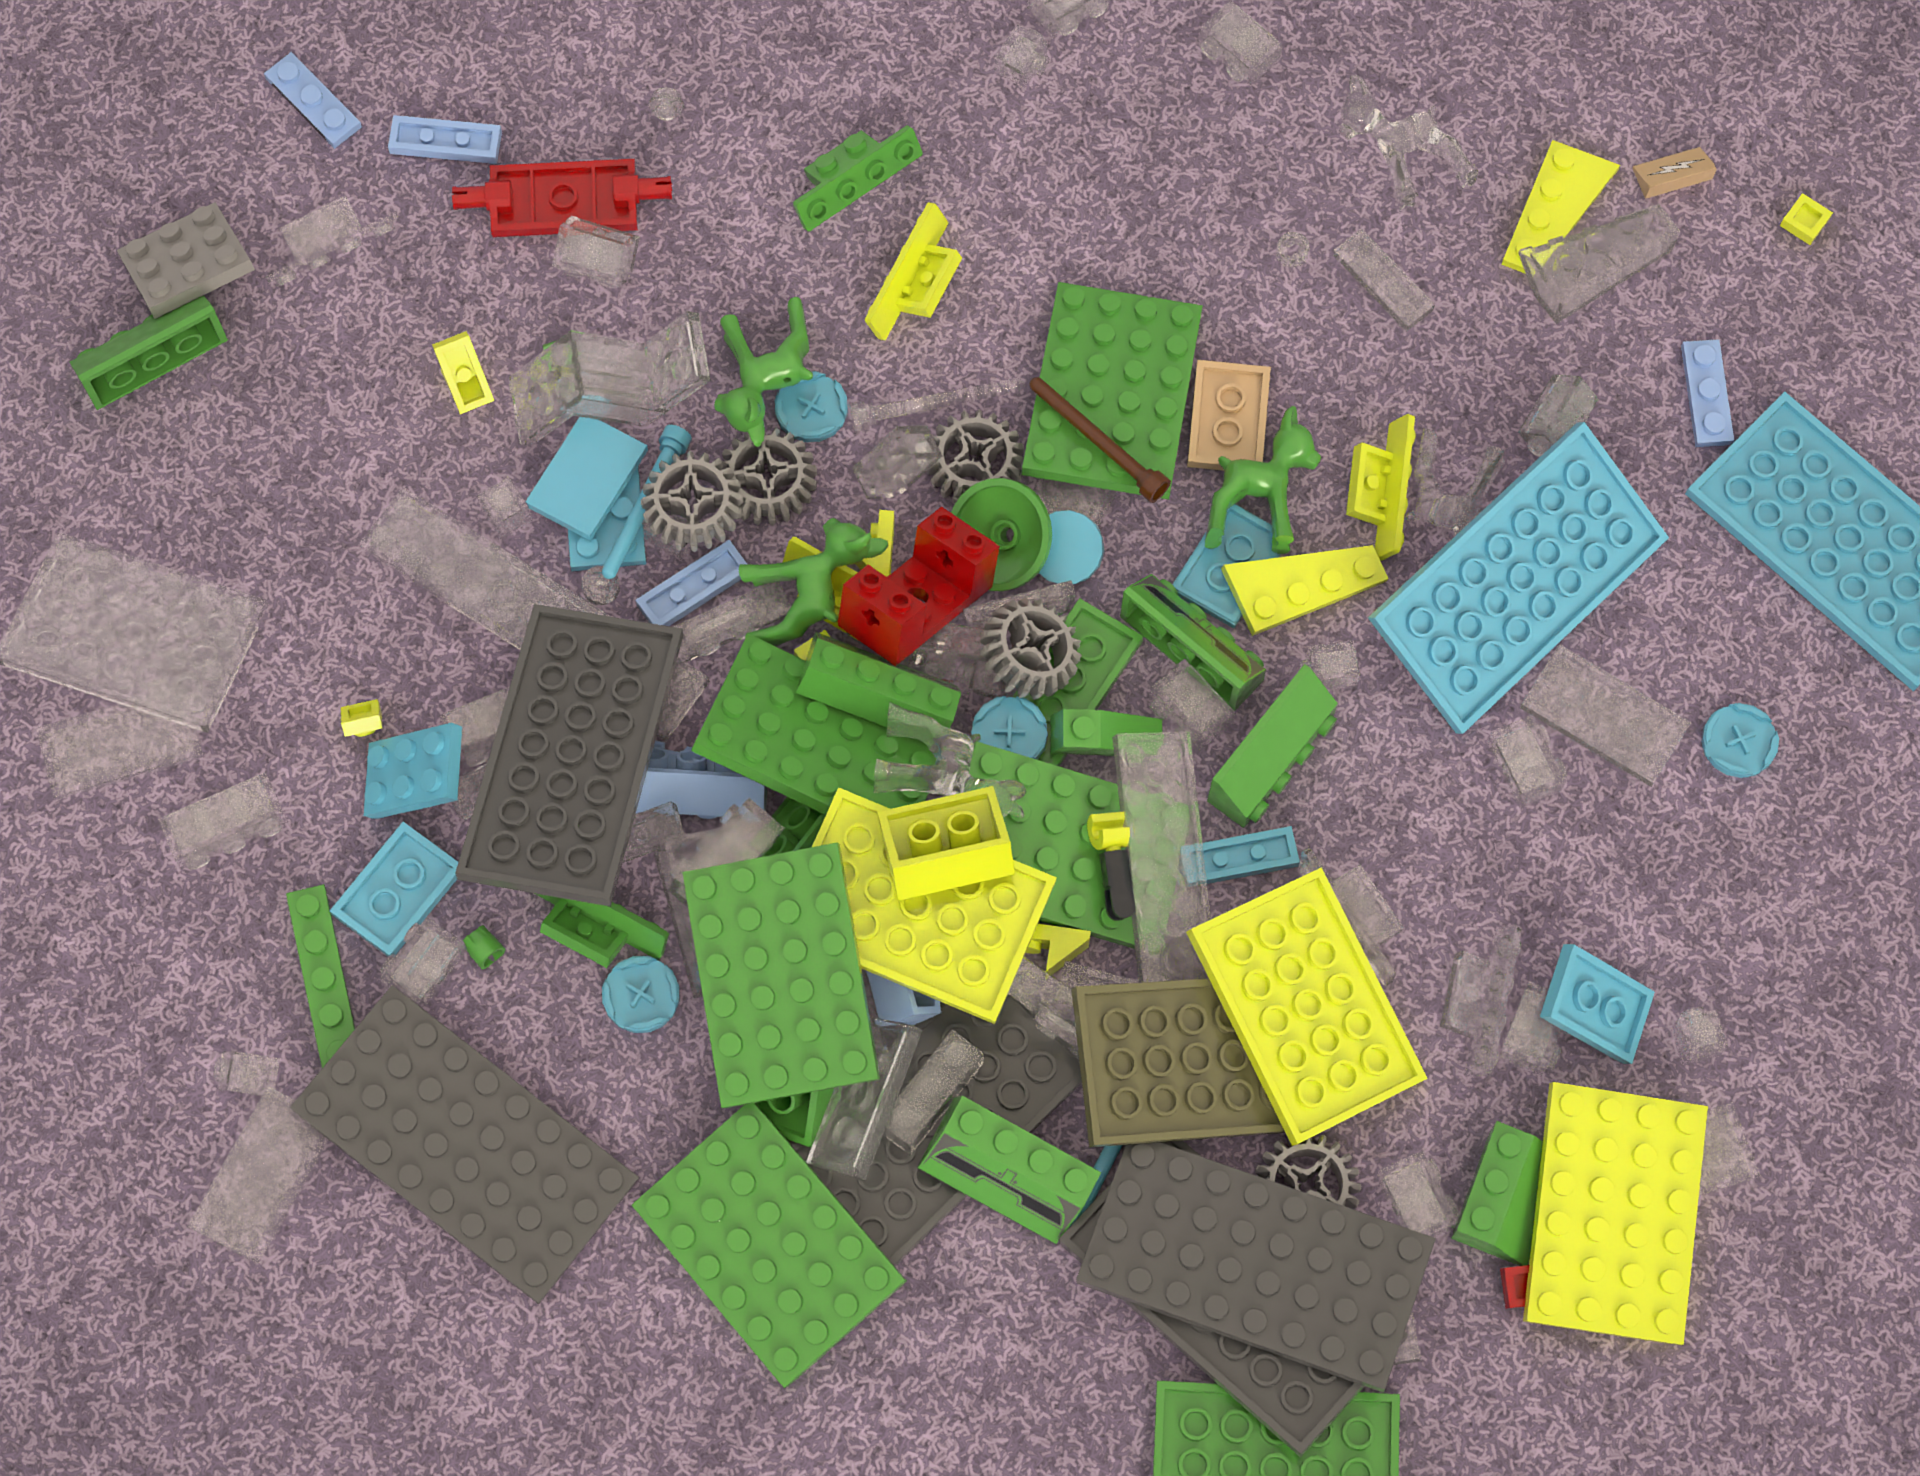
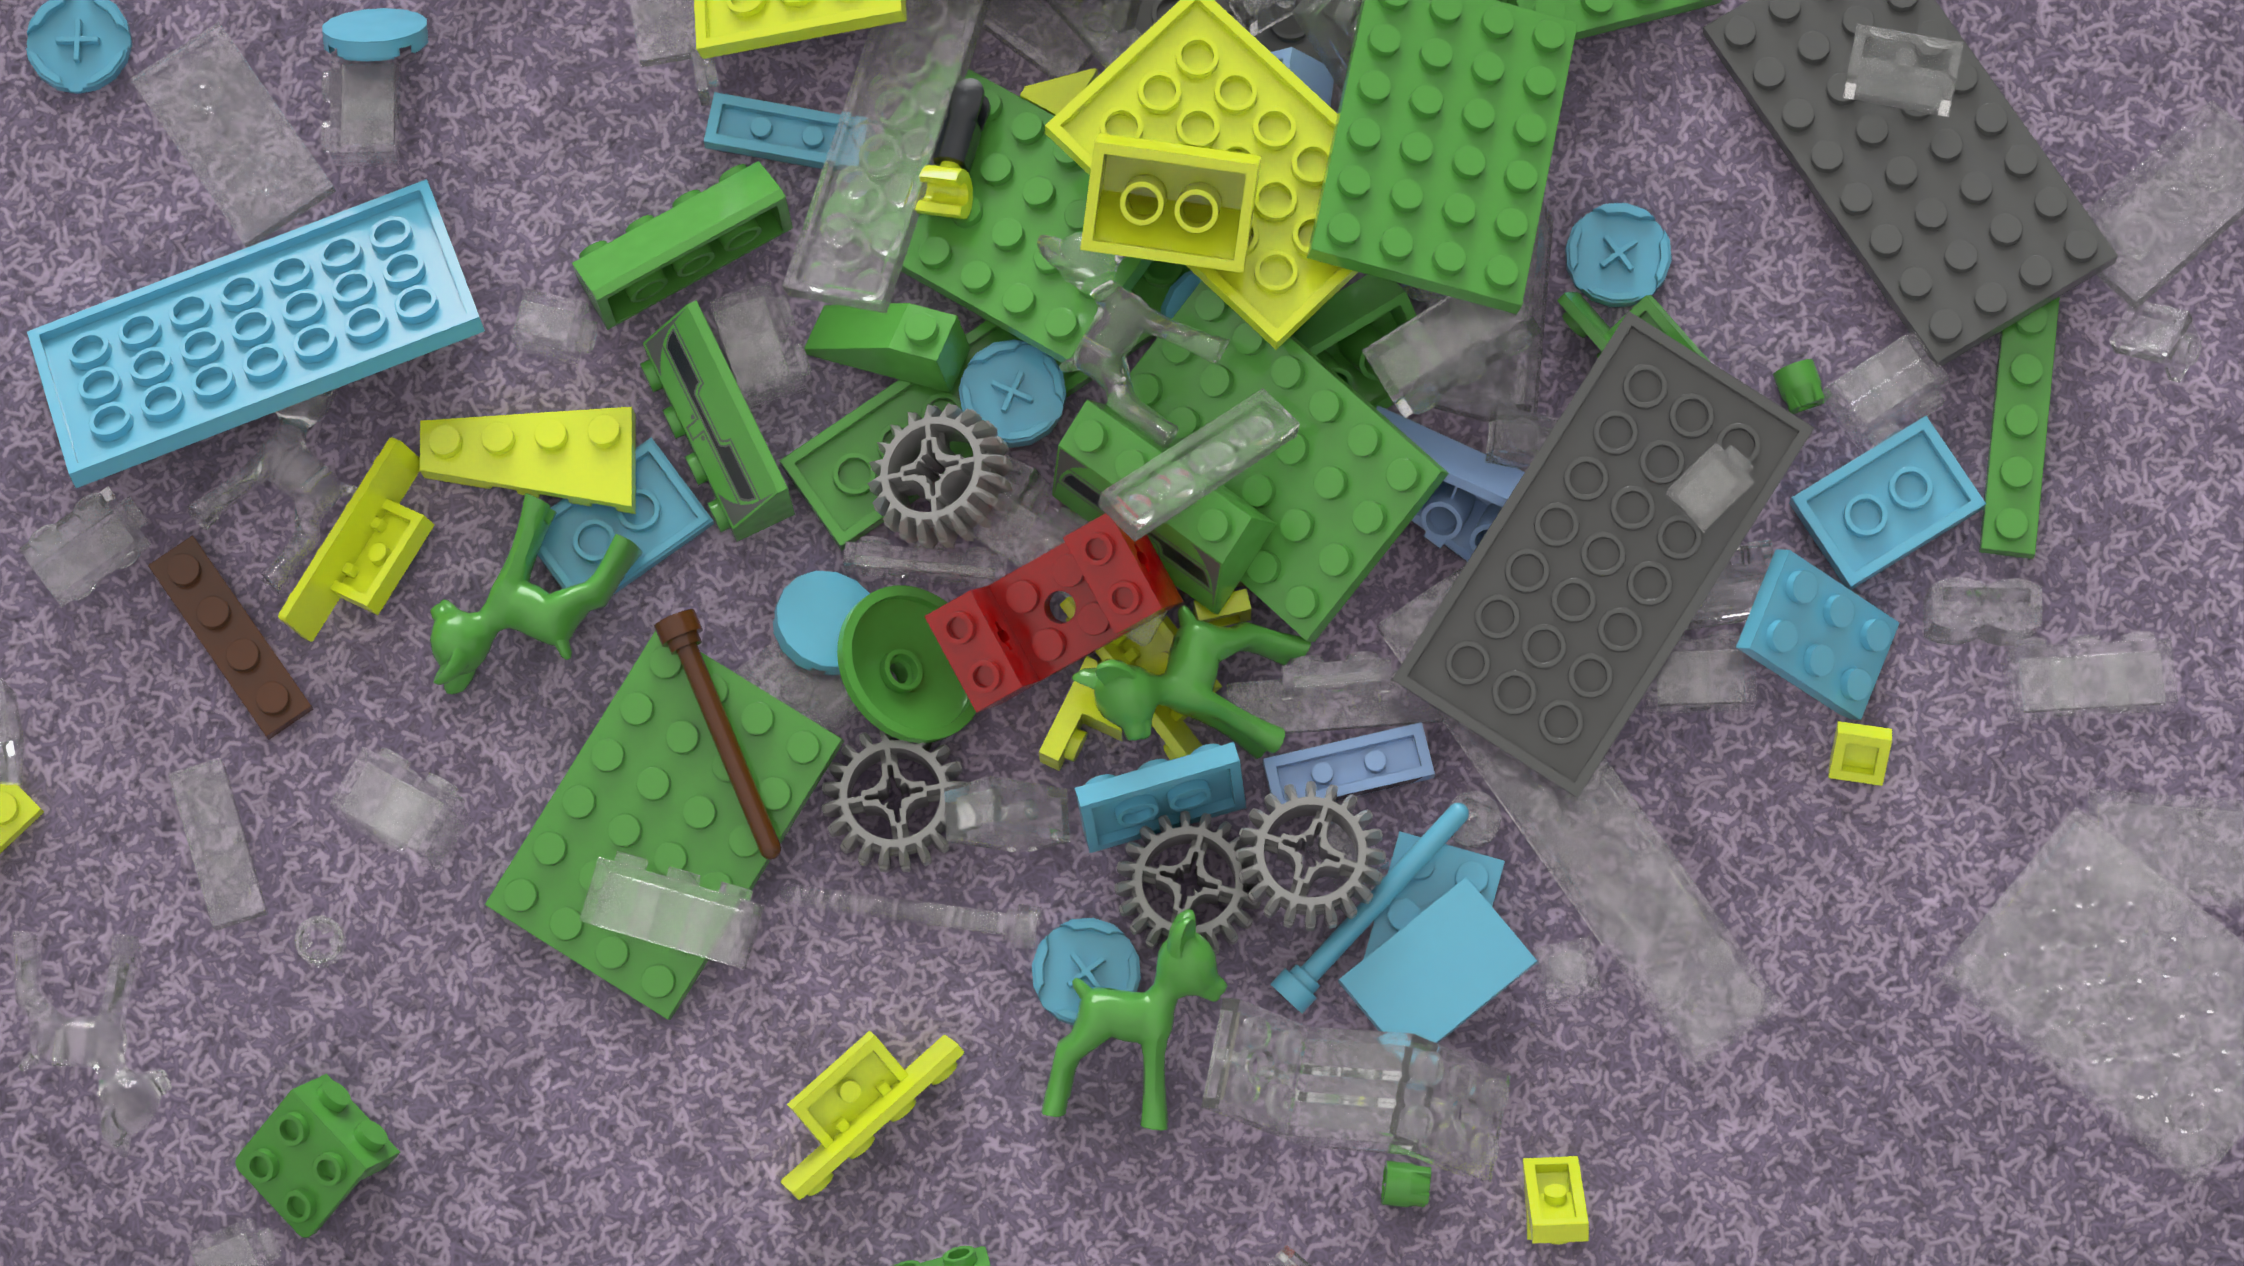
camera: 155 degrees left, 5 degrees up
(299, 836) = (1996, 613): none -> clear brick
(481, 1170) = (1903, 70): none -> clear brick
(511, 801) = (1712, 485): none -> clear brick
(805, 512) = (1199, 783): none -> medium azure plate
(856, 685) = (1198, 464): none -> clear plate
(1080, 324) = (673, 910): none -> clear brick
(1228, 413) = (524, 728): tan plate -> none
(1232, 132) = (314, 1153): none -> bright green bracket
(1278, 327) = (402, 809): none -> clear brick
(1439, 404) = (230, 637): none -> reddish brown plate
(1544, 807) = (374, 34): none -> medium azure tile

